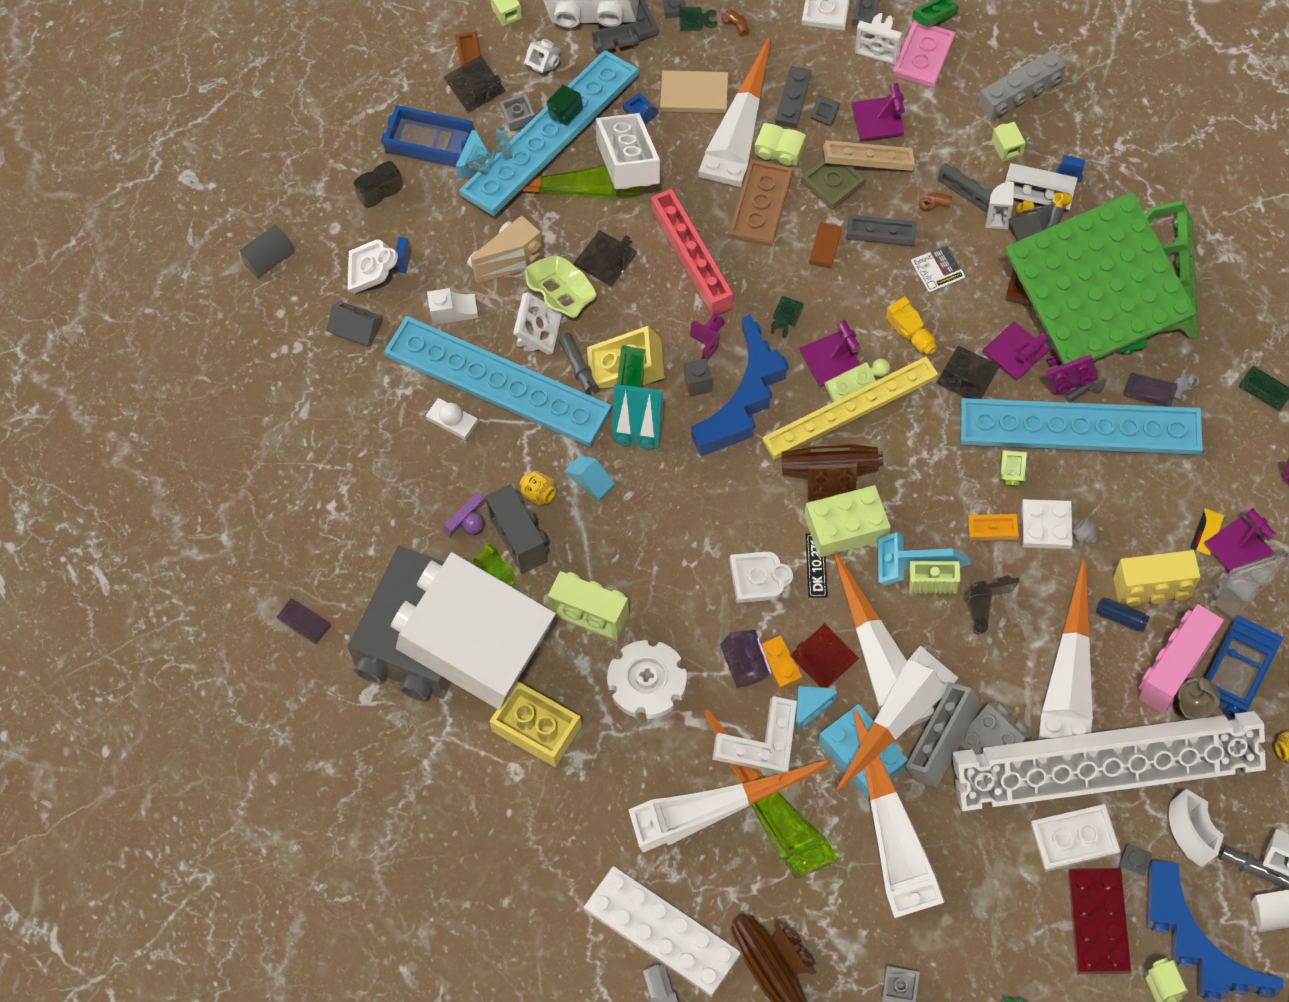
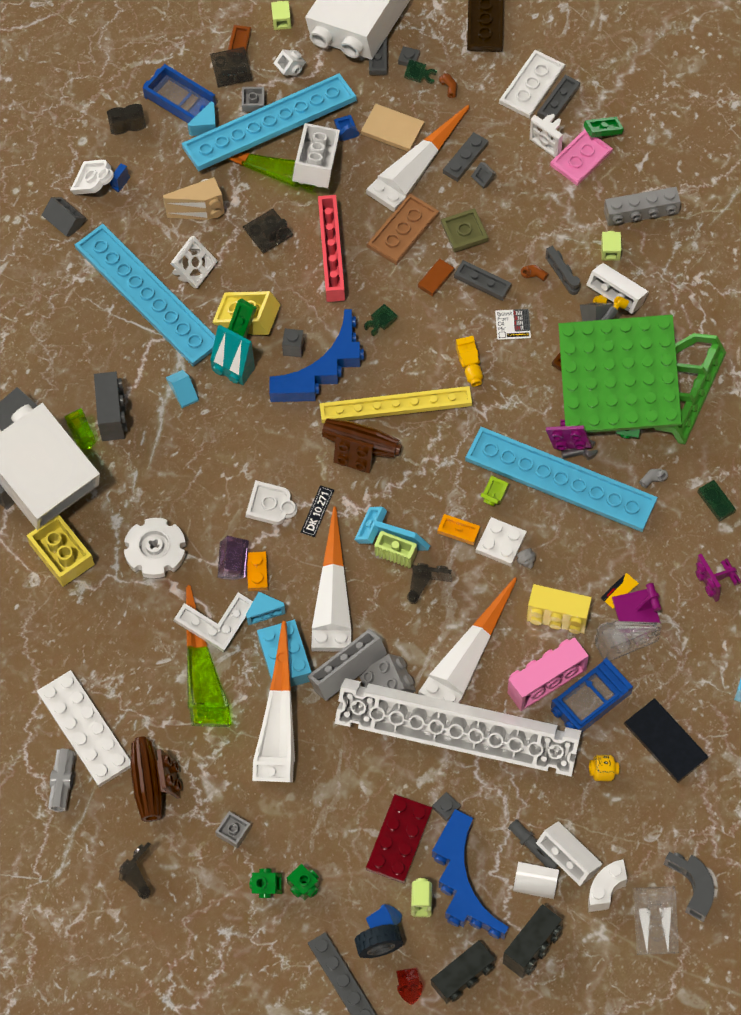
camera: 20 degrees right, 0 degrees up
(266, 251) = (24, 141): dark grey brick -> none
(451, 307) = (136, 227): white arch -> none
(452, 418) = (102, 310): white tile -> none
(467, 518) = (79, 386): medium lavender tile -> none
(480, 159) = (205, 125): clear light blue plate -> none
(502, 144) = (227, 119): clear light blue plate -> none
(538, 488) = (139, 382): yellow head -> none
(564, 104) = (286, 105): dark green brick -> none
(568, 278) = (234, 237): yellowish green piece -> none
(581, 371) = (211, 307): dark grey pin -> none
(589, 605) = (135, 479): yellowish green brick -> none
(609, 37) = (355, 66): dark grey hinge -> none
(680, 816) = (130, 652): white plate -> none
(707, 334) = (315, 314): magenta bracket -> none
(780, 144) = (436, 189): yellowish green brick -> none
(824, 656) = (290, 578): clear red hinge -> none
(832, 354) = (399, 362): magenta plate -> none
(846, 521) = (351, 486): yellowish green brick -> none
(856, 378) = (410, 384): yellowish green plate -> none
(868, 155) = (498, 220): tan plate -> none
(880, 116) = (522, 193): magenta plate -> none
(915, 691) = (334, 628): white plate -> none
(968, 374) = (495, 410): clear smoke plate -> none
(1000, 206) = (578, 292): white brick -> none
(1016, 350) = (540, 405): magenta plate -> none
(1072, 167) = (649, 282): blue tile -> none
(1075, 837) = (411, 774): white tile -> none
(1123, 614) = (524, 627): dark blue piece -> none
(1150, 389) = (627, 470): clear purple tile -> none
(1193, 828) = (497, 798): white brick -> none
(1198, 698) = (543, 706): dark tan hair -> none

